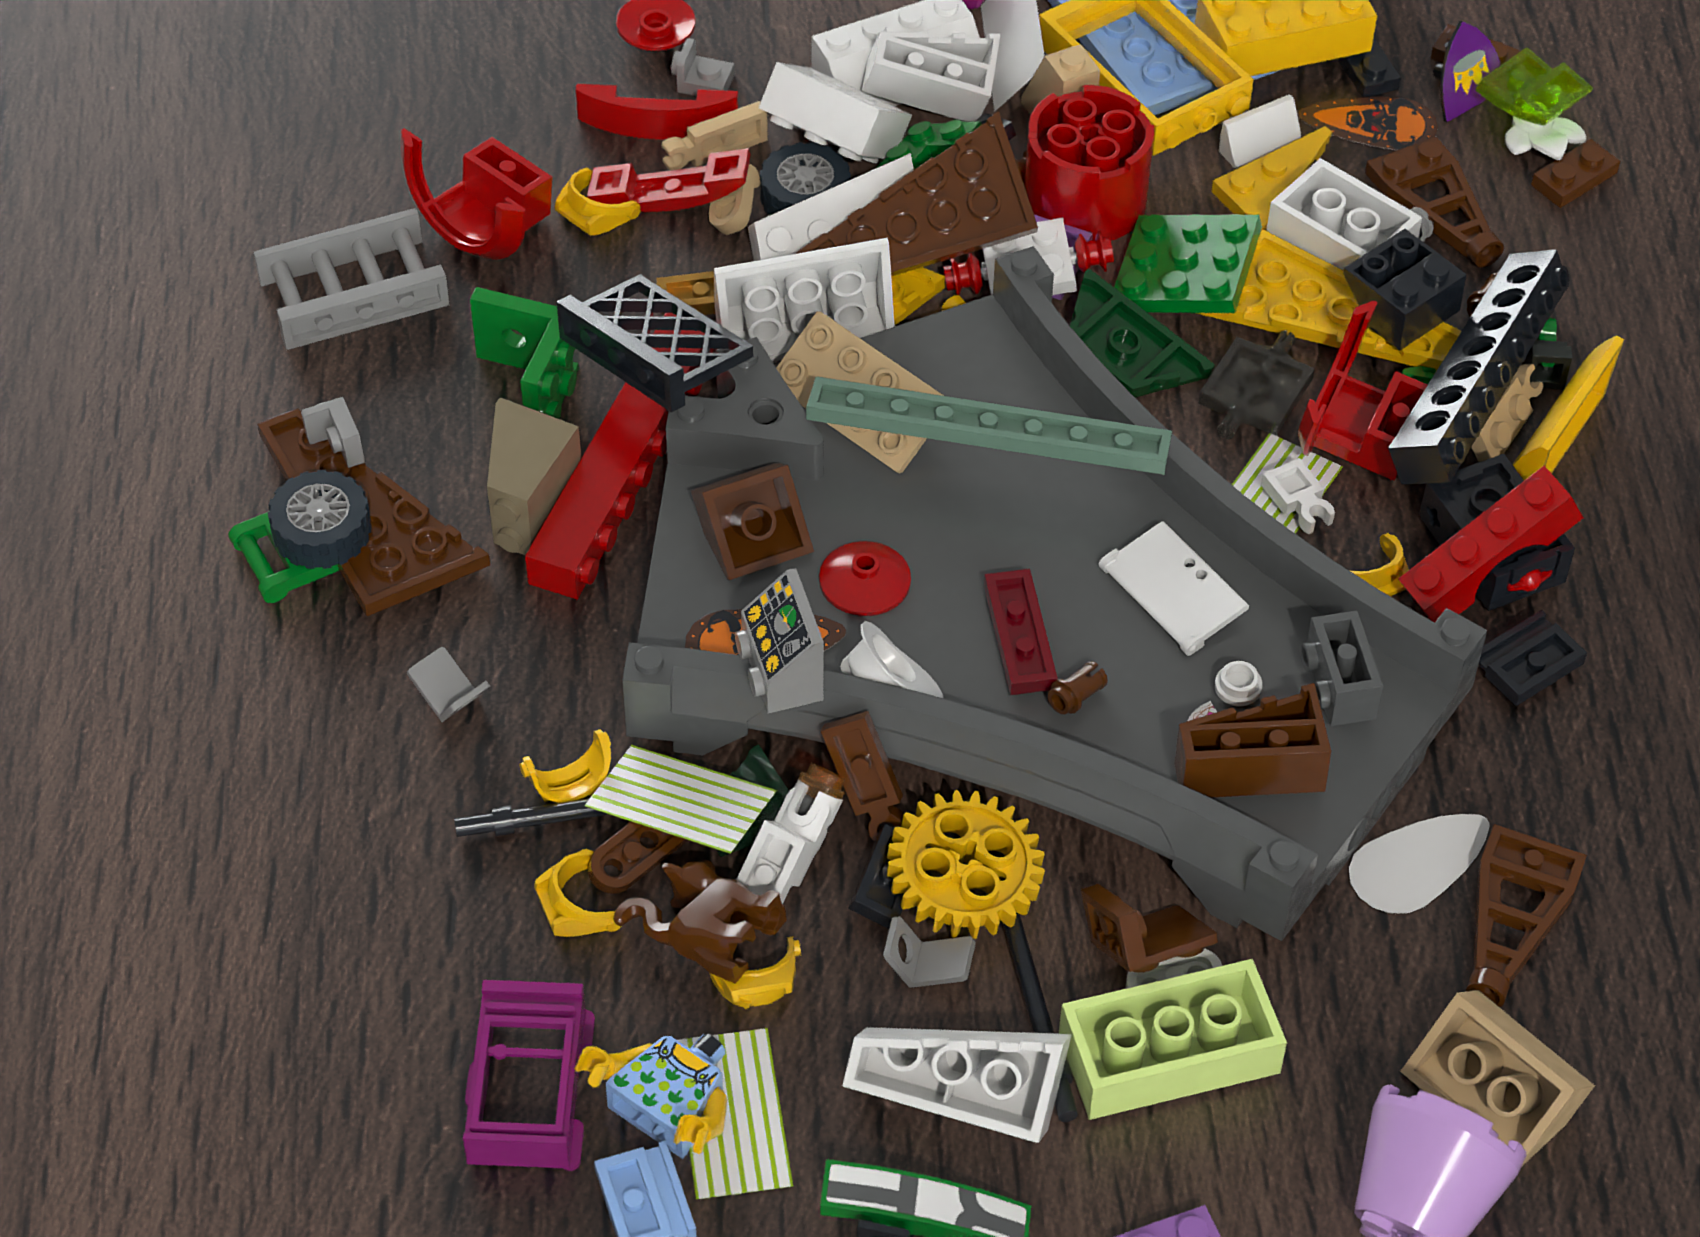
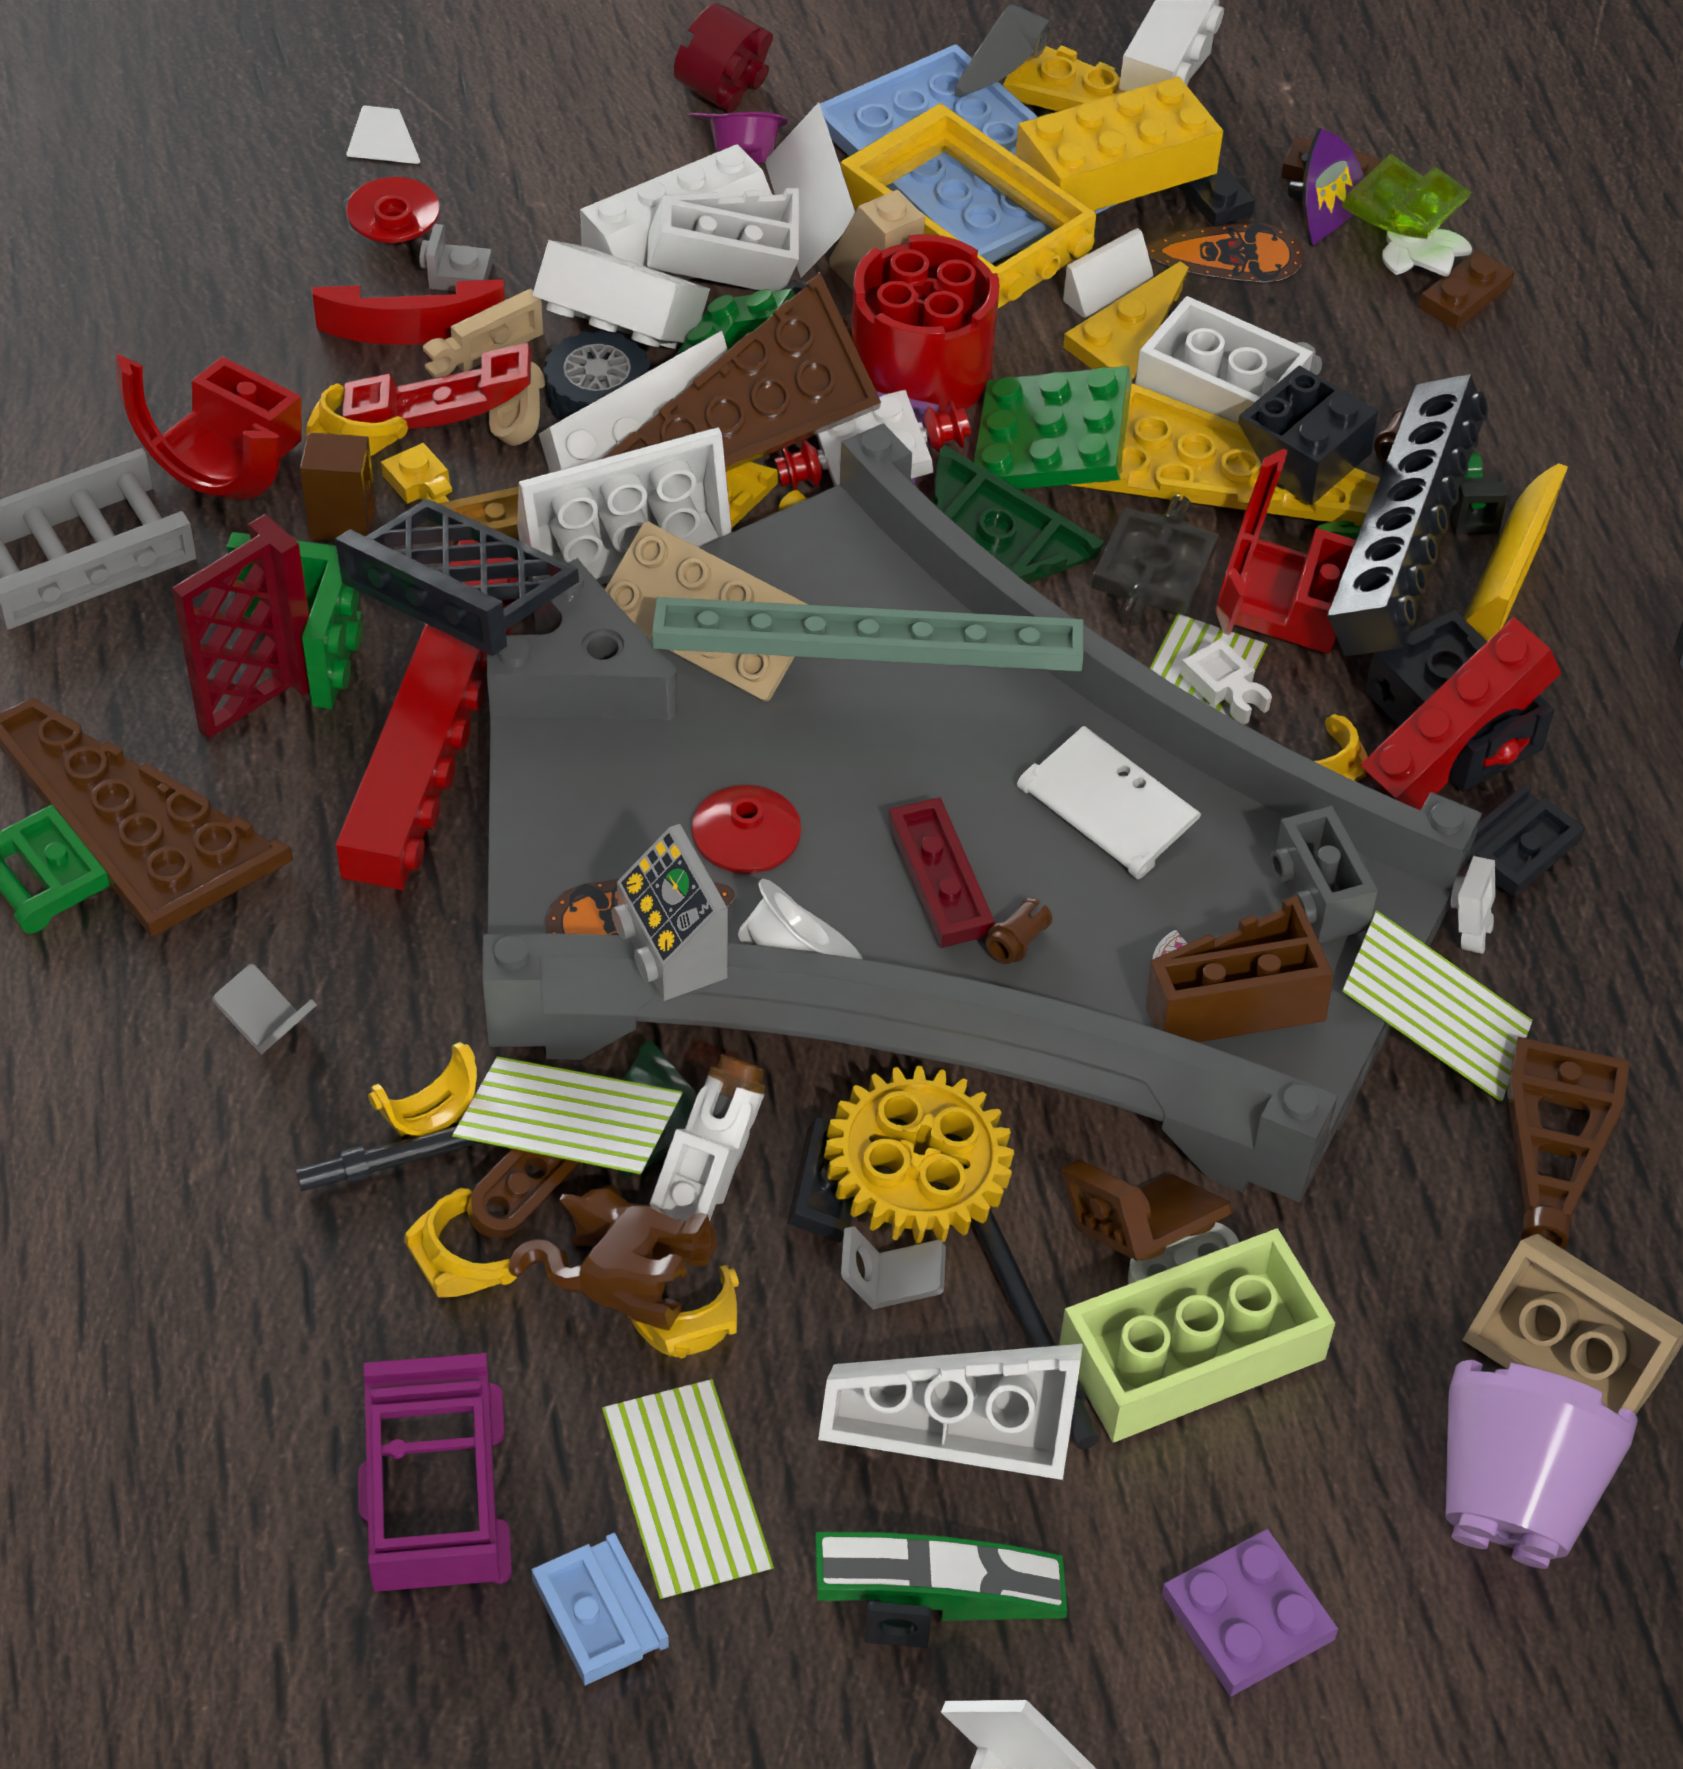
camera: 10 degrees left, 0 degrees up
(323, 498) = (75, 801): black wheel -> none
(334, 422) = (83, 710): light grey bracket -> none
(504, 359) = (280, 614): none -> dark red fence
(527, 471) = (325, 744): dark tan slope -> none
(572, 255) = (337, 485): none -> reddish brown panel
(642, 252) = (417, 475): none -> yellow plate
(664, 1089) = (603, 1470): torso -> none
(753, 520) = (605, 773): reddish brown slope -> none
(867, 771) = (786, 1053): reddish brown plate -> none
(1238, 683) = (1204, 905): white plate -> none
(1416, 861) = (1419, 1104): white sticker -> none
(1426, 789) = (1436, 1005): none -> white sticker
(1427, 162) = (1302, 291): reddish brown plate -> none
(1474, 706) = (1473, 899): none -> white plate
(1508, 415) = (1448, 569): tan plate -> none

